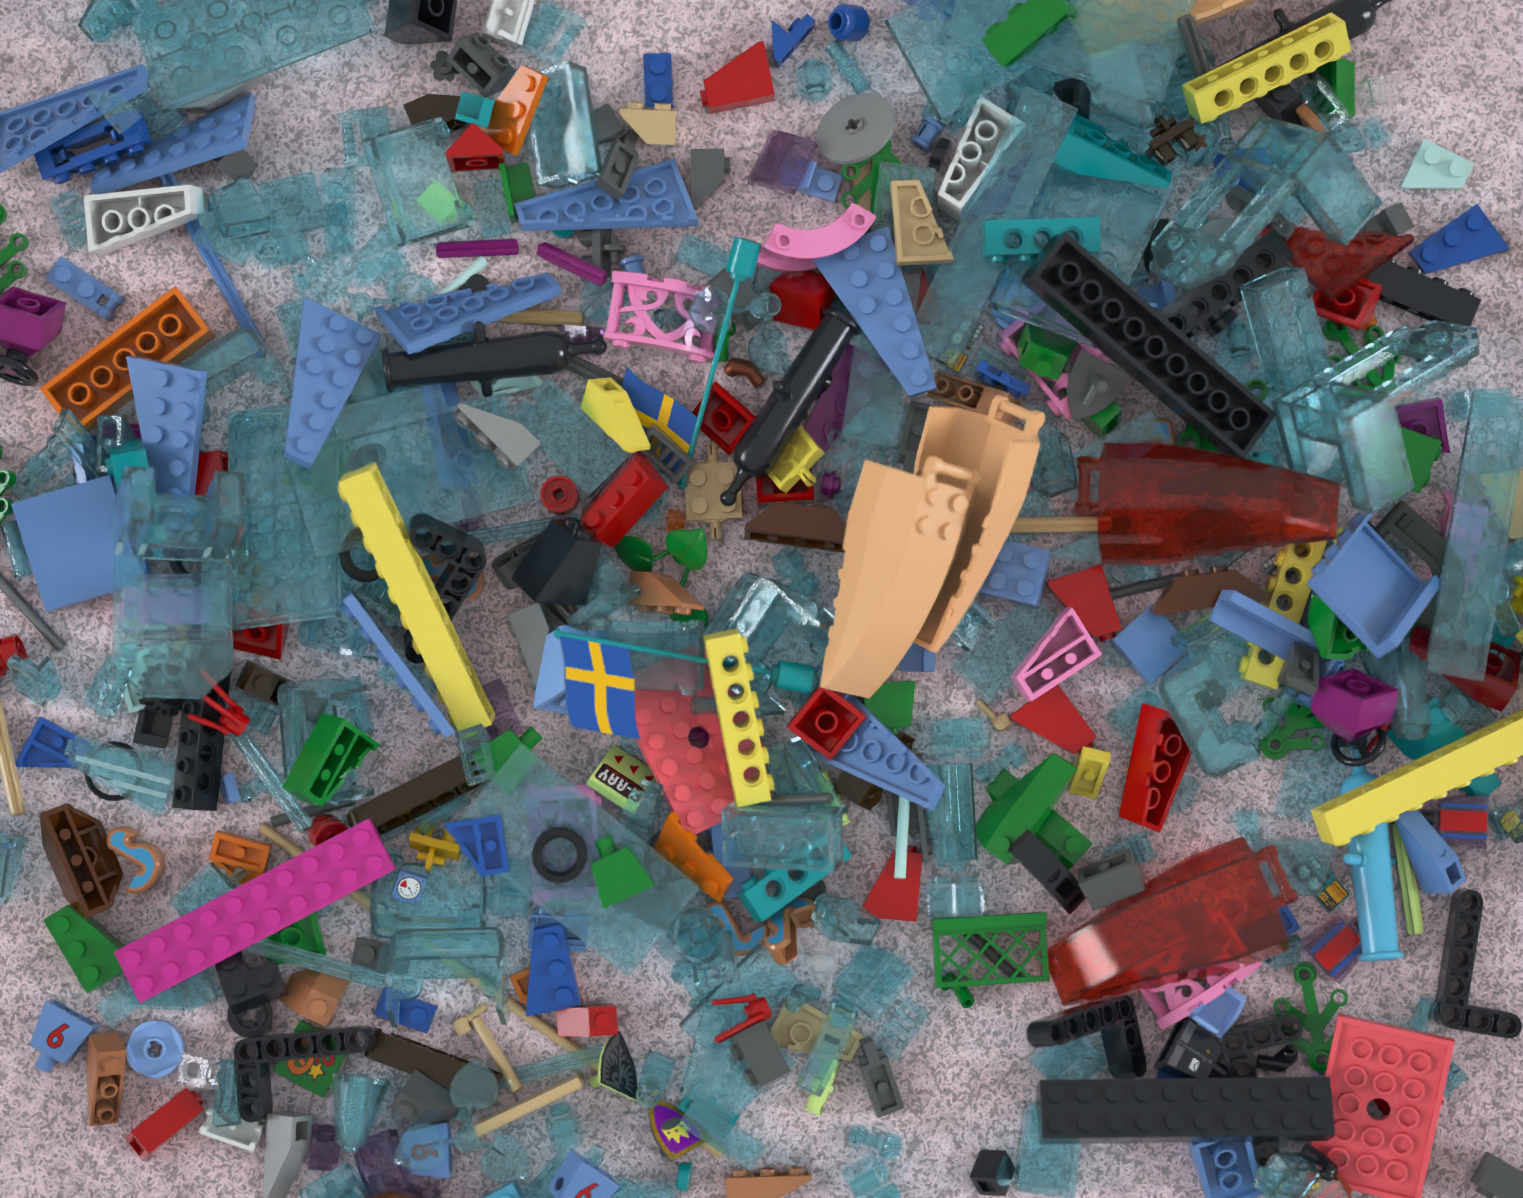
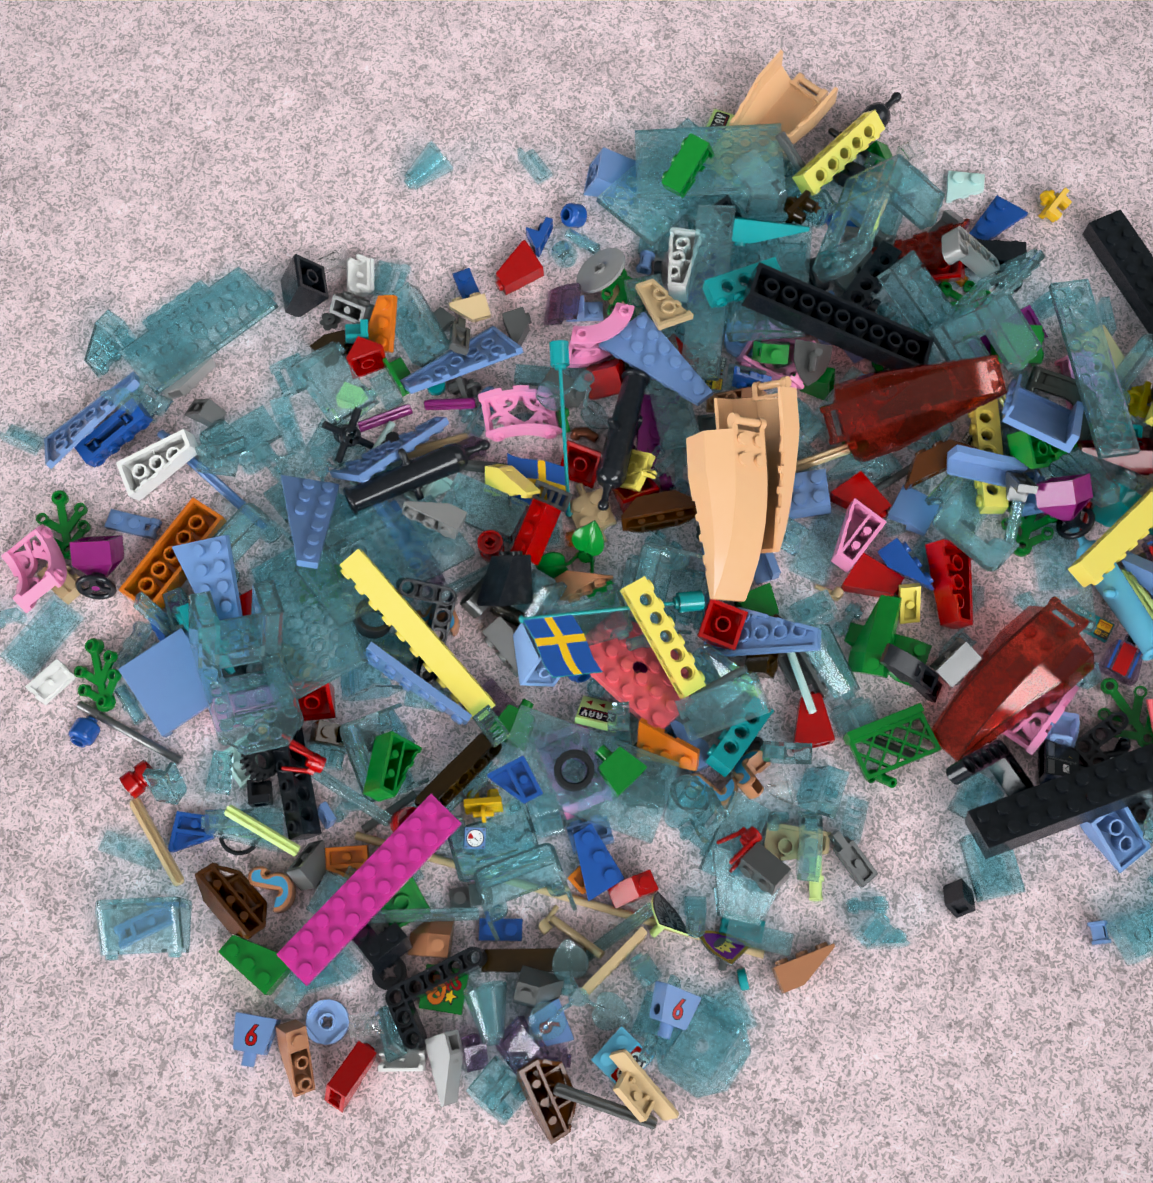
camera: 15 degrees left, 15 degrees down
(81, 238) = (120, 495): clear light blue slope -> none
(140, 786) = (262, 830): none -> yellowish green axle
(188, 848) = (309, 866): none -> dark grey slope
(202, 140) = (174, 415): medium blue wing -> none
(414, 266) = (353, 438): none -> black bar
(1101, 710) = (898, 559): none -> blue slope
(1375, 288) = (964, 247): none -> light grey beam

